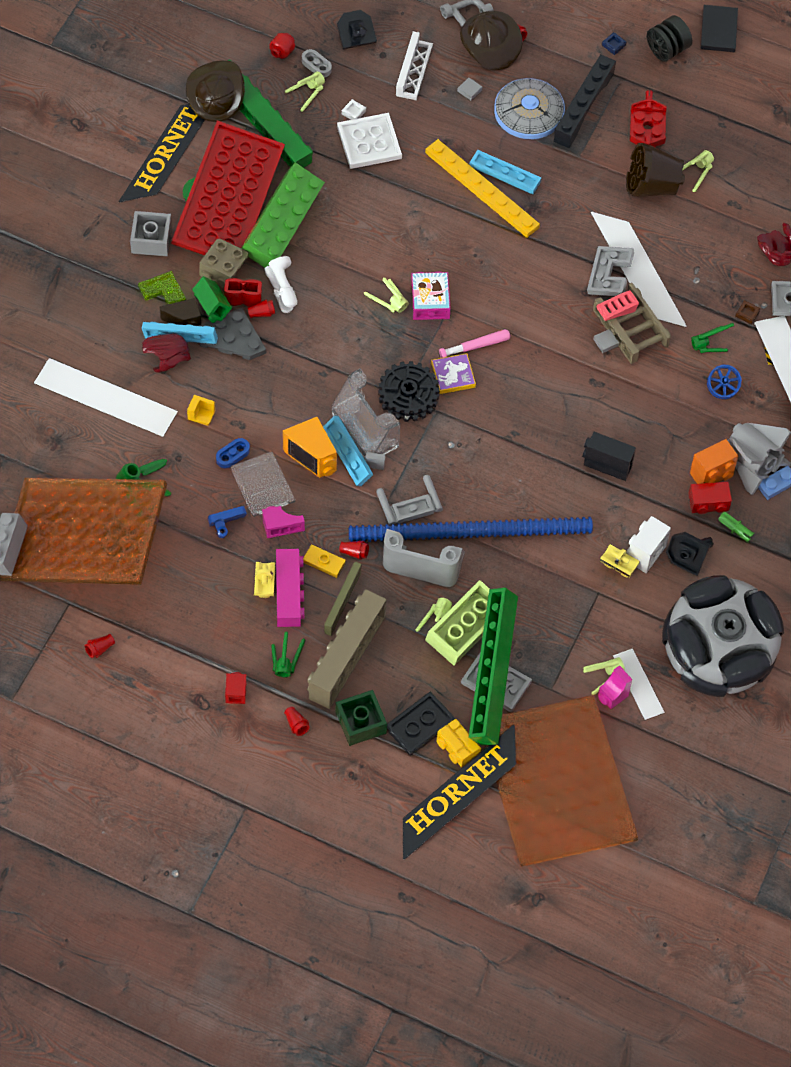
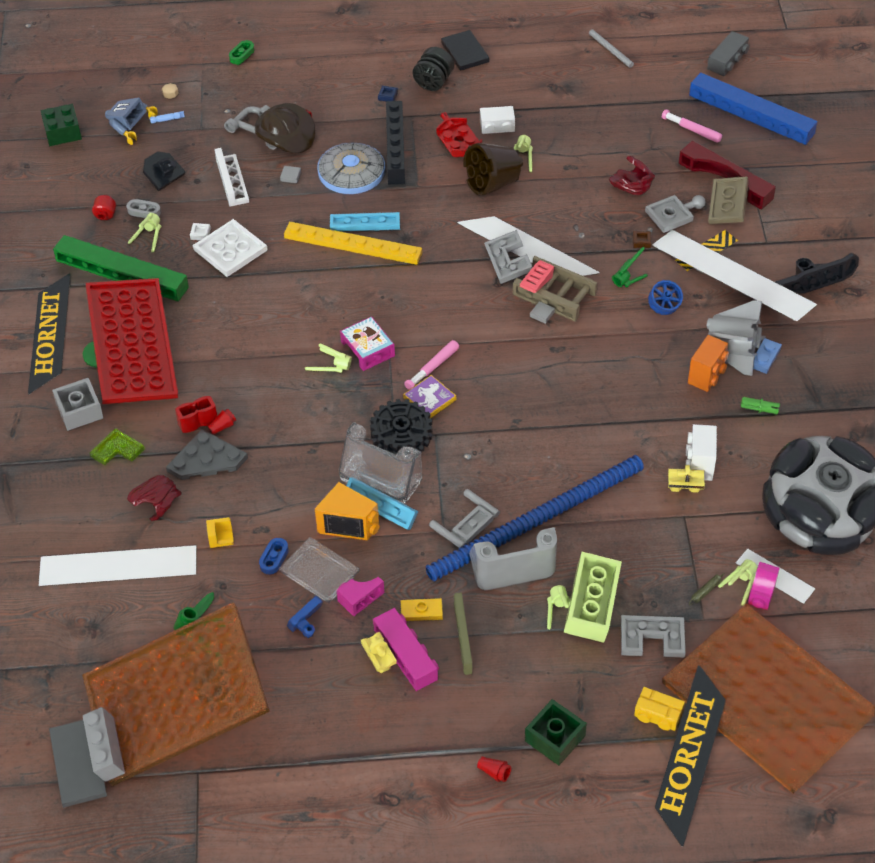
camera: 25 degrees left, 10 degrees down
(98, 646) = (253, 798): red cone -> none
(181, 313) = (149, 459): dark brown slope -> none
(189, 332) = (170, 469): medium azure plate -> none
(212, 299) = (171, 432): green brick -> none
(216, 90) = (67, 263): dark brown piece -> none
(222, 262) = (160, 399): dark tan bracket -> none
(235, 688) = (416, 767): red brick -> none
(282, 215) = (192, 337): bright green brick -> none
(282, 289) = (219, 387): white piece -> none
(283, 667) = (448, 723): green plant -> none
(346, 648) = (499, 676): dark tan brick -> none
(356, 549) = (444, 584): red cone -> none
(375, 460) = (412, 499): light grey tile -> none
(419, 723) = (610, 710): black tile -> none
(493, 667) = (650, 621): green brick -> none
(571, 664) = (705, 589): none -> olive piece
(608, 455) = (615, 397): black brick -> none
(688, 551) = (739, 442): black piece -> none
(696, 121) = (497, 120): none -> white brick
(710, 497) = (721, 392): red brick -> none

